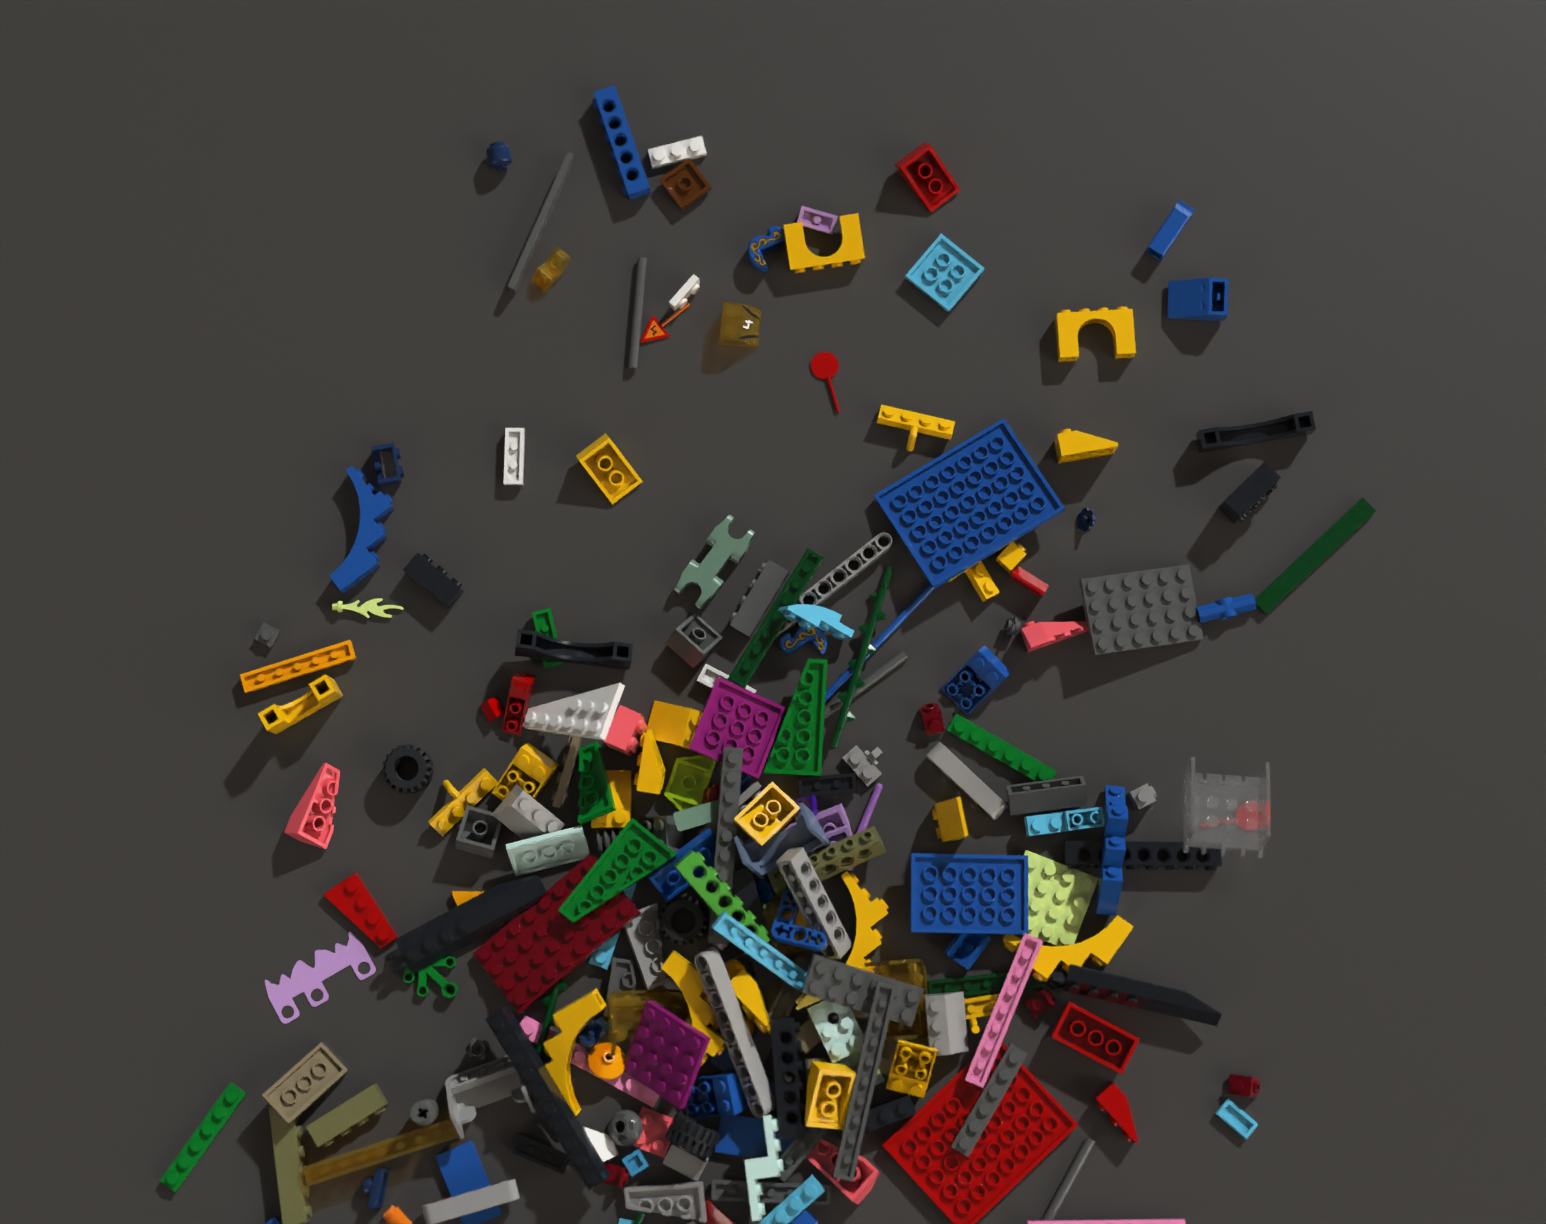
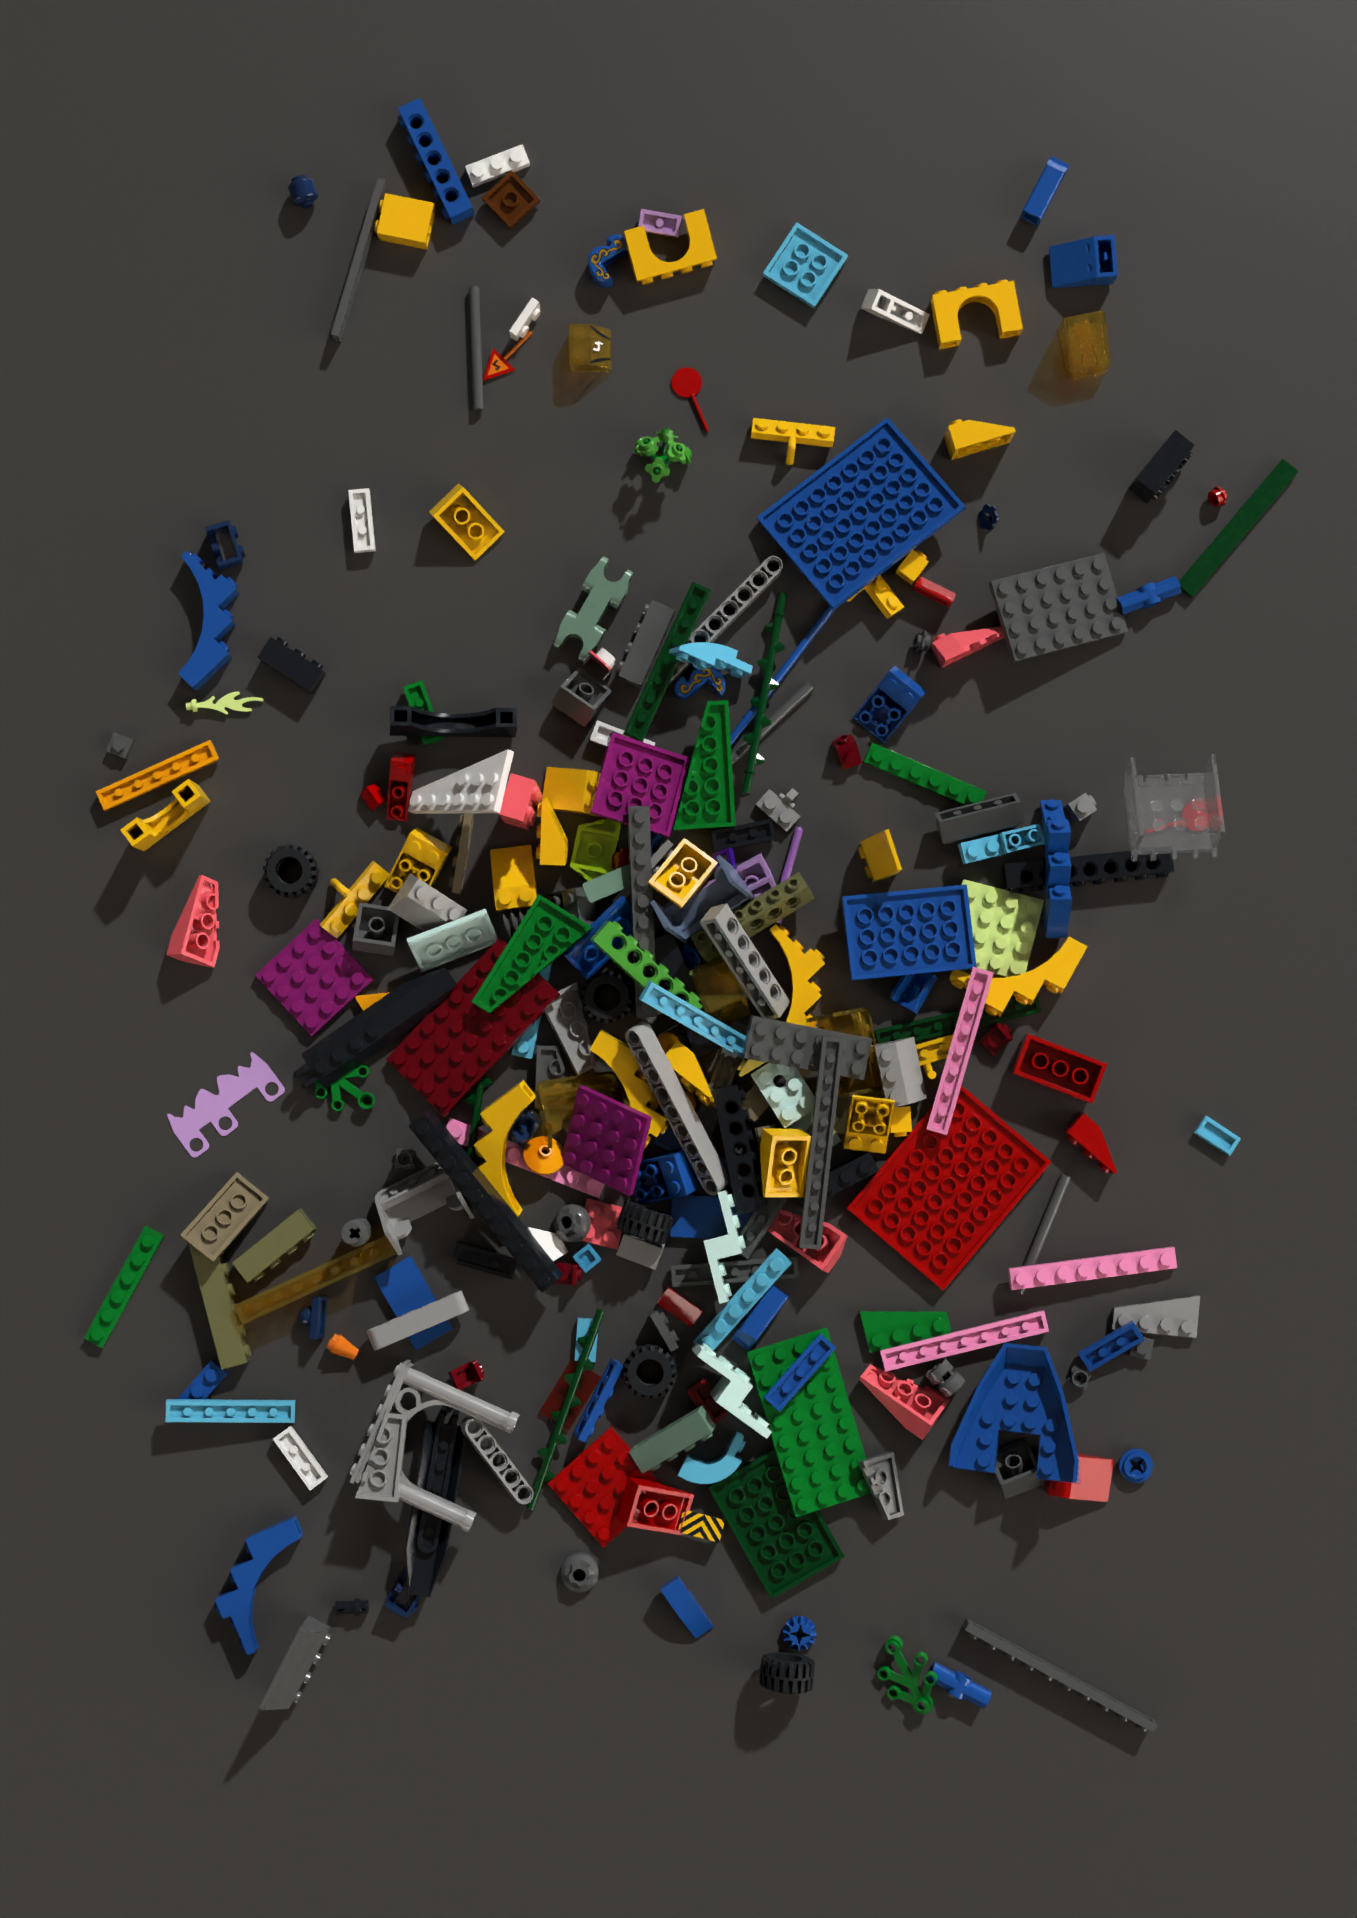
camera: 10 degrees left, 5 degrees up
(359, 906) = (258, 1024): red wing -> none
(416, 869) = (314, 977): none -> magenta plate
(551, 269) = (376, 311): clear yellow slope -> none
(587, 192) = (405, 221): none -> yellow brick
(594, 785) = (493, 864): green wing -> none
(674, 1199) = (632, 1291): light grey wing -> none
(718, 608) = (603, 658): none -> piece
(788, 925) = (720, 989): blue beam -> none
(805, 429) = (675, 452): none -> bright green plant
(927, 176) = (774, 161): red slope -> none
(942, 1069) = (901, 1121): none -> yellow brick
(966, 781) = (892, 813): light grey beam -> none
(989, 1100) = (954, 1147): dark grey plate -> none
(1021, 323) = (894, 310): none -> white slope
(1134, 994) = (1095, 1017): black hinge -> none
(1191, 374) = (1084, 345): none -> clear yellow slope
(1244, 1085) = (1221, 1100): dark red bracket -> none
(1276, 429) = (1137, 408): black arch -> none
(1298, 525) = (1217, 496): none -> red plate

